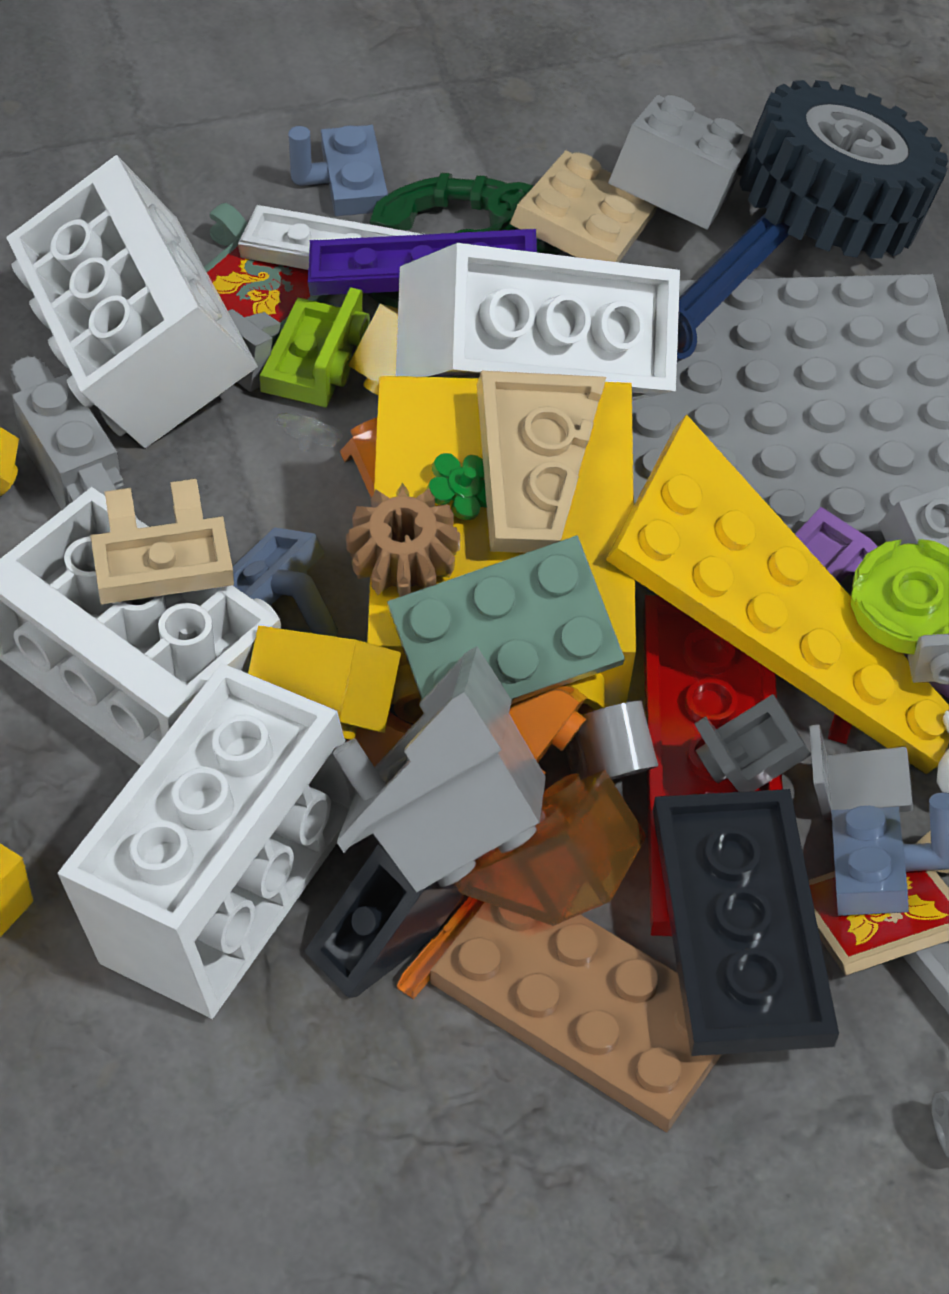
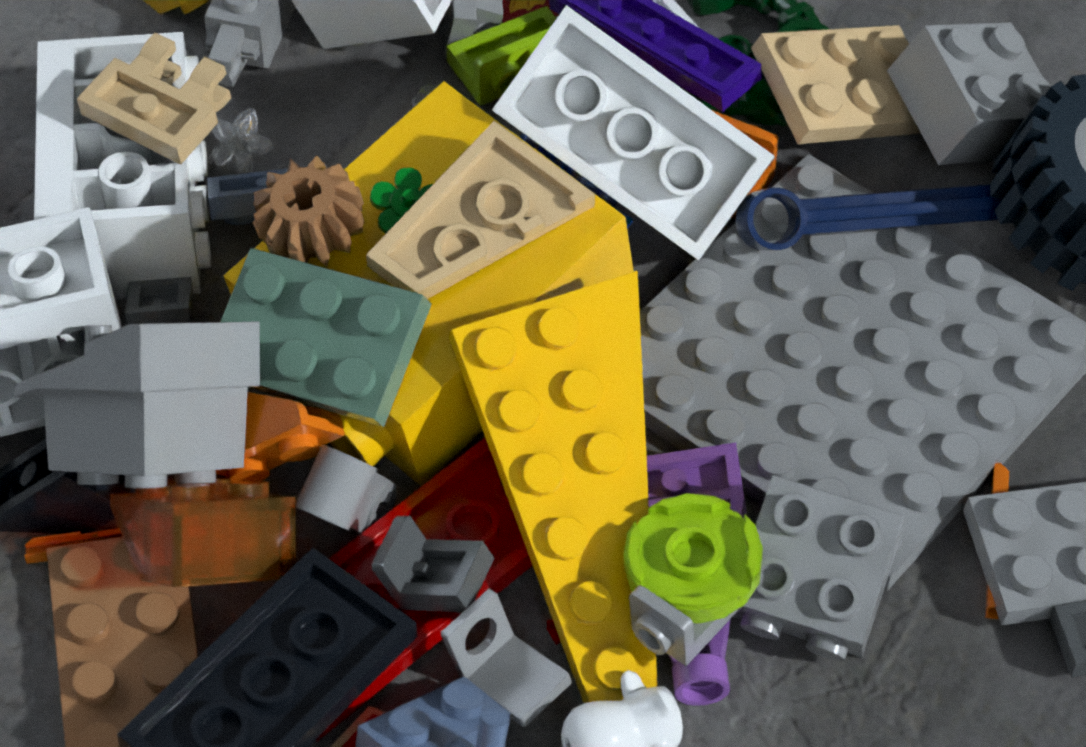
camera: 45 degrees right, 0 degrees up
(332, 671) = (165, 275): yellow brick -> none

